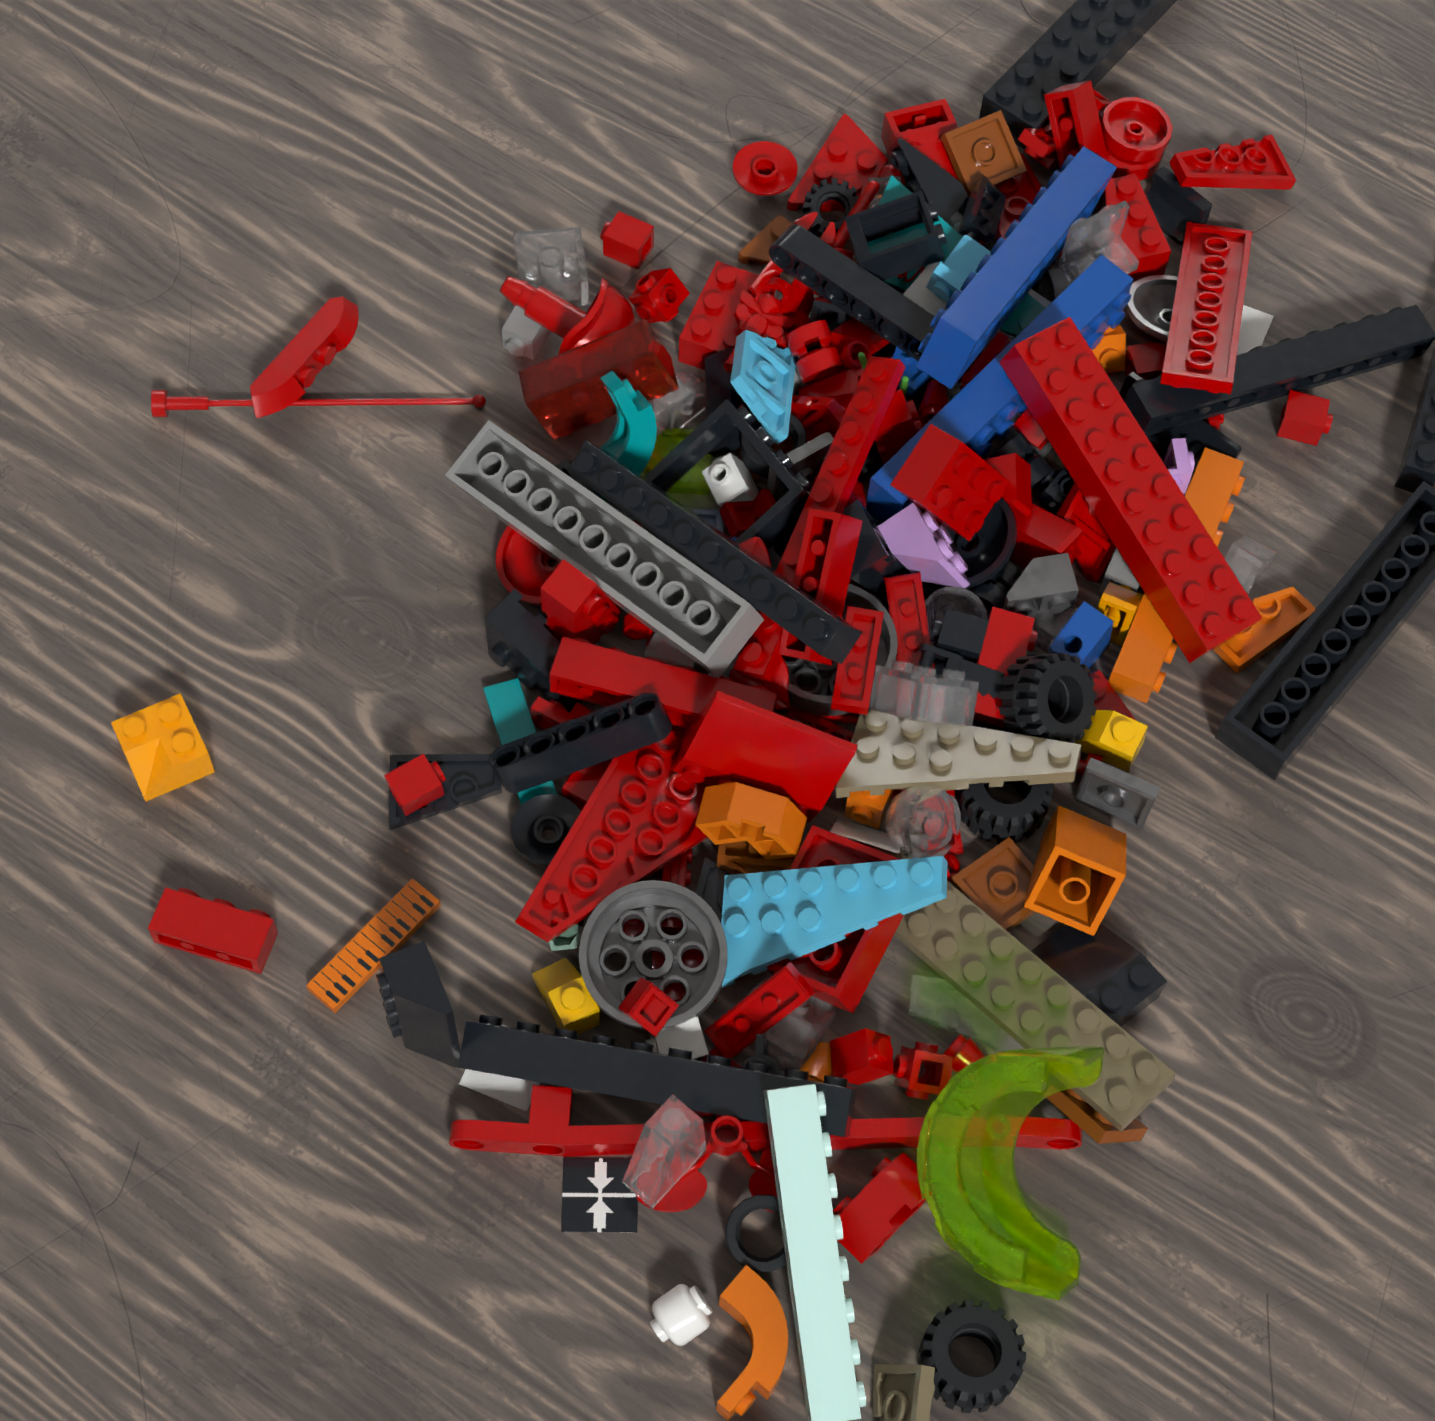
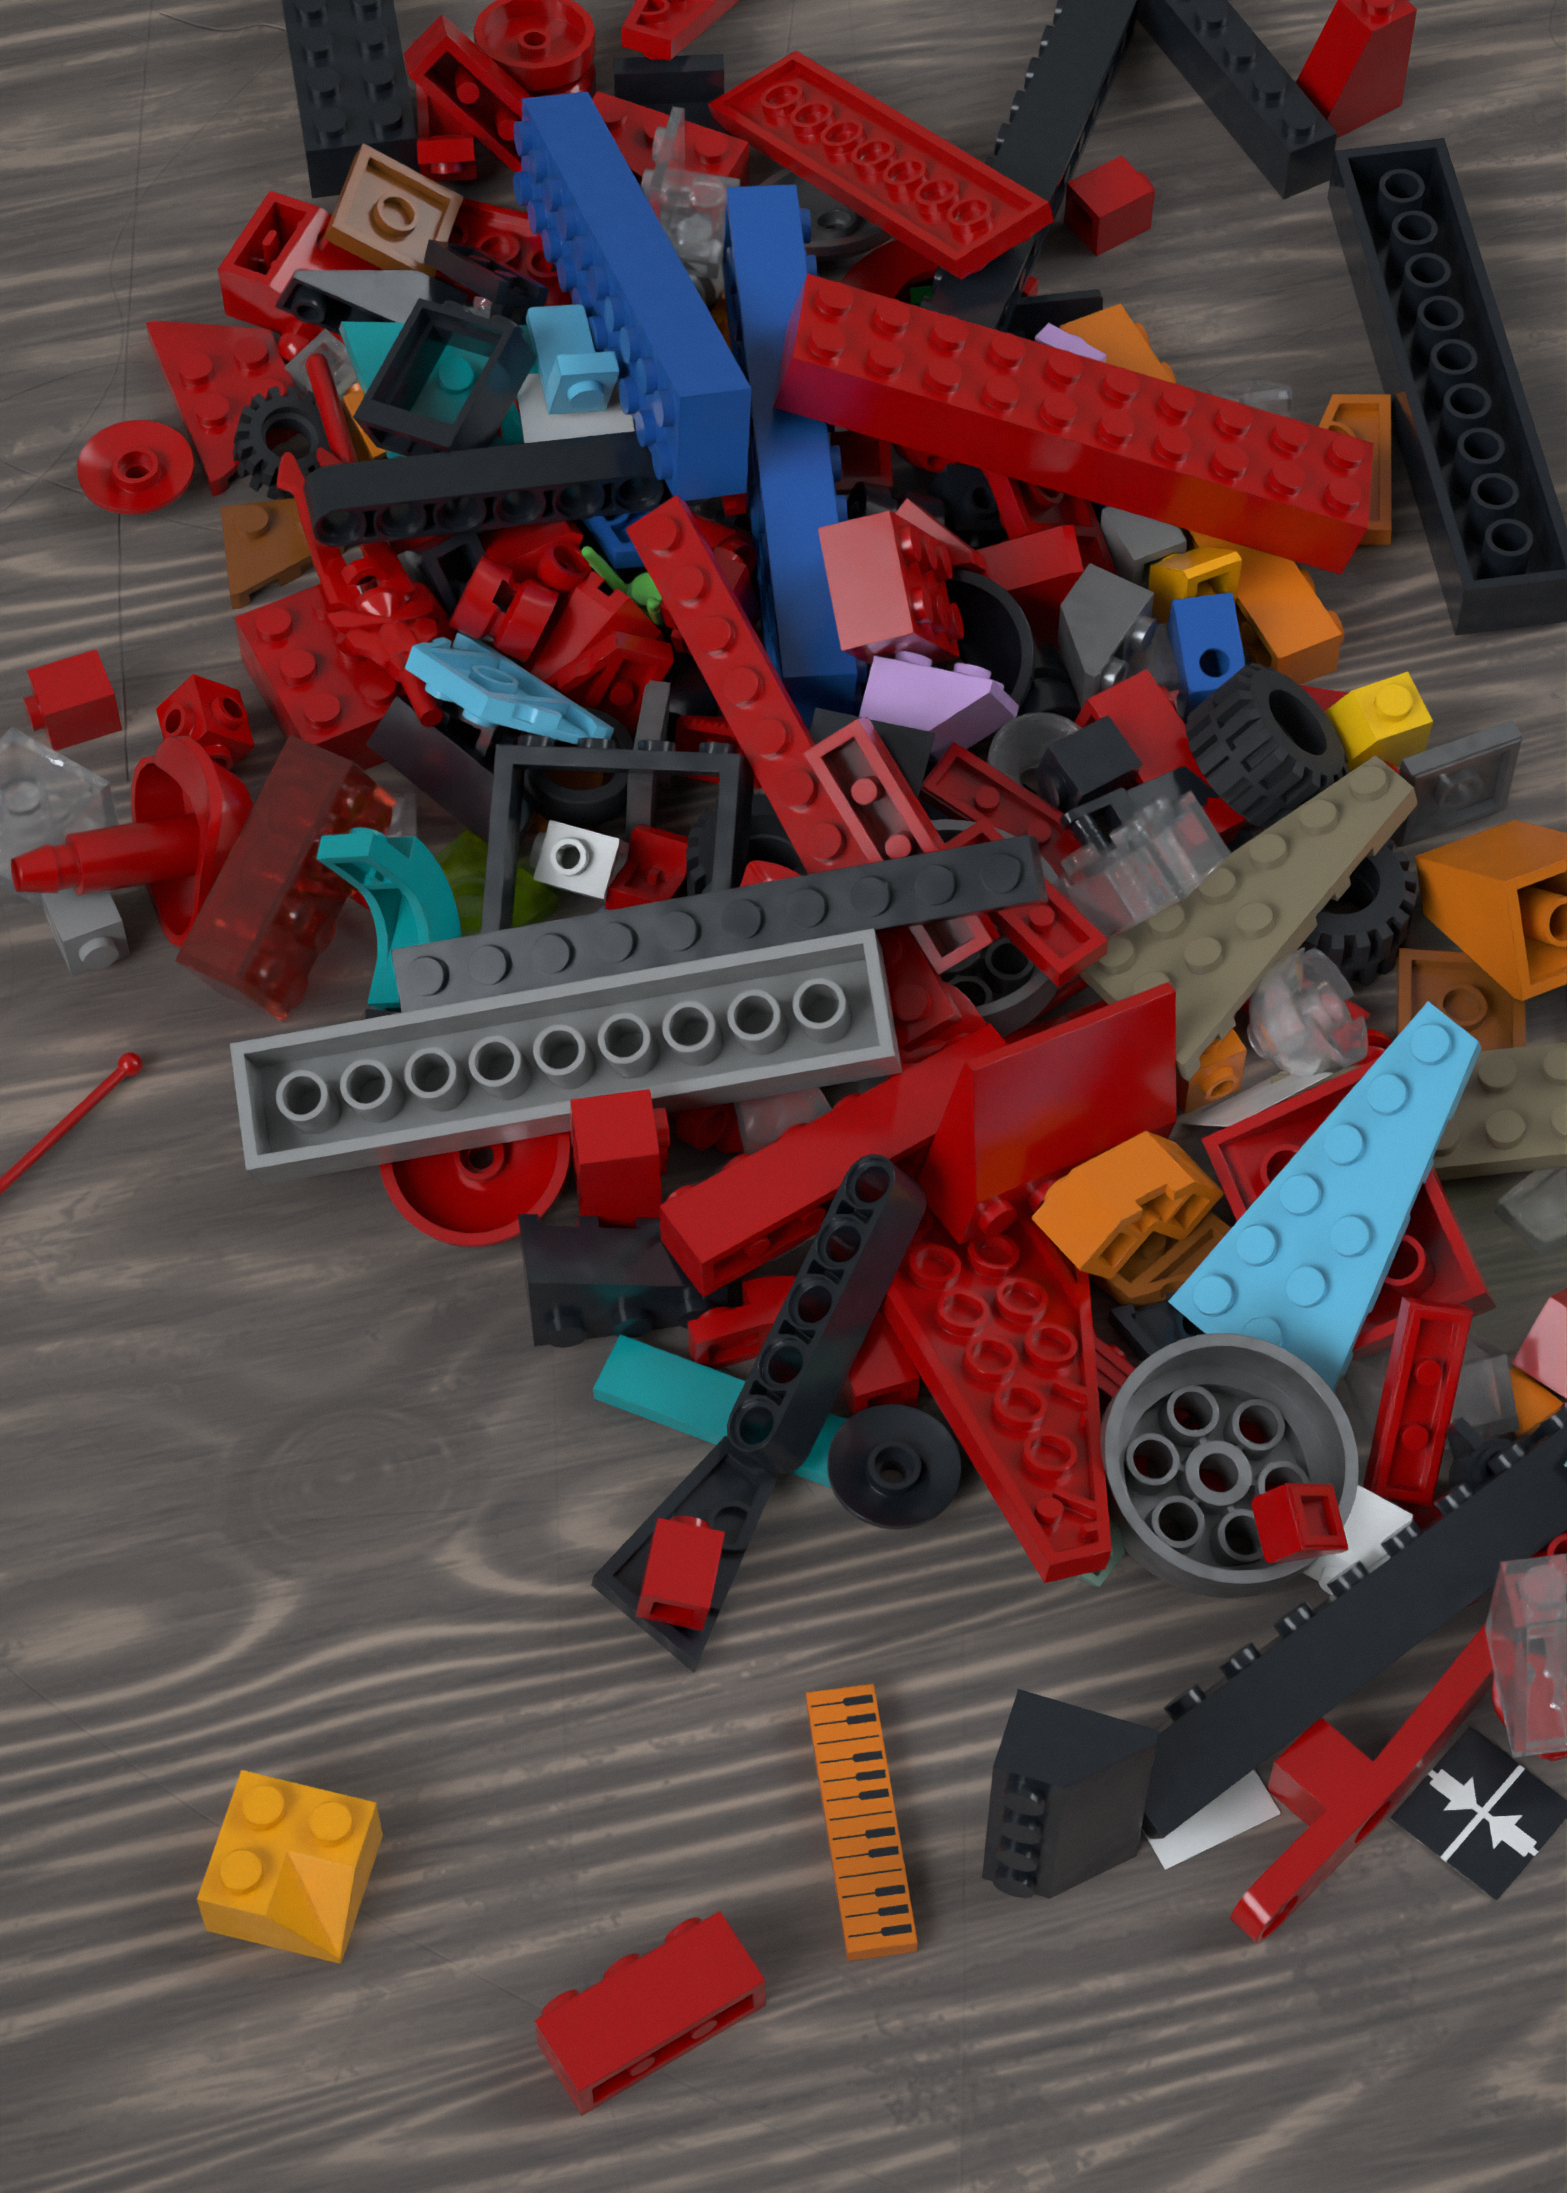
camera: 45 degrees left, 5 degrees down
(567, 996) = (1162, 1630): yellow slope -> none

